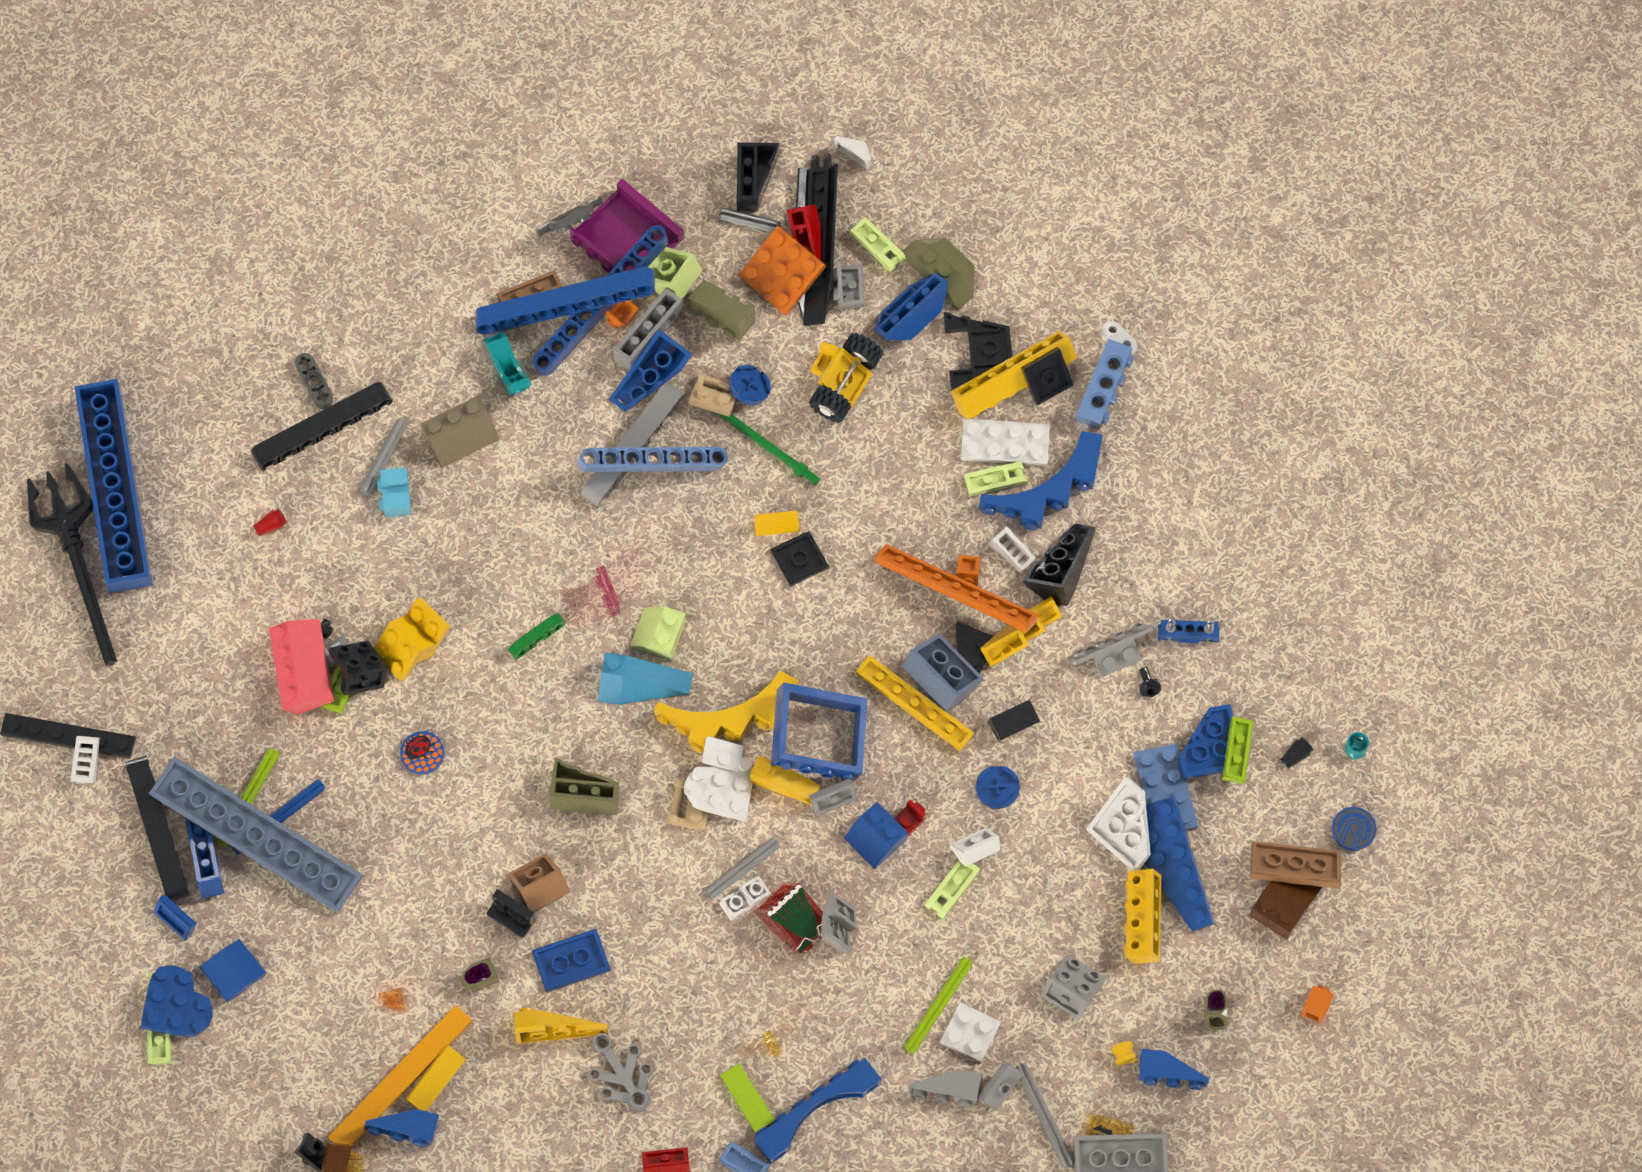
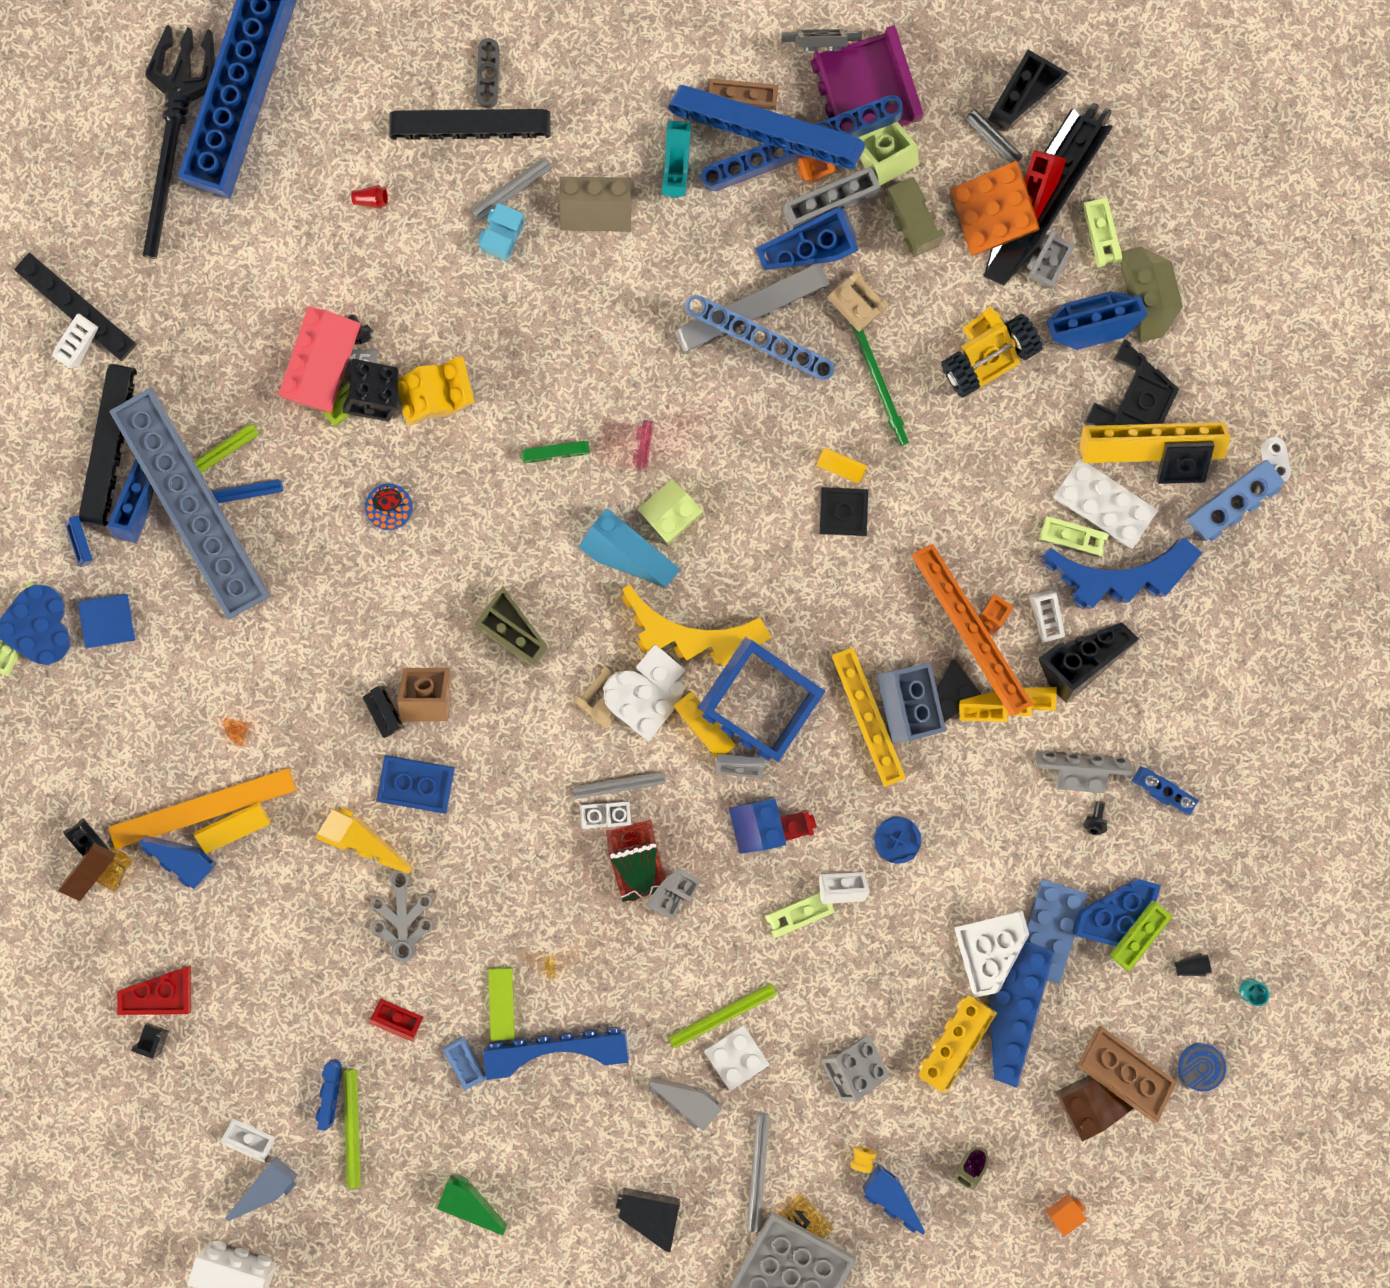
camera: 30 degrees right, 20 degrees up
(479, 975) = (323, 754): rock -> none
(749, 385) = (896, 310): blue tile -> none
(854, 149) = (1138, 119): white slope -> none
(1000, 1085) = (733, 1127): light grey plate -> none
(1013, 720) = (950, 786): black hinge -> none

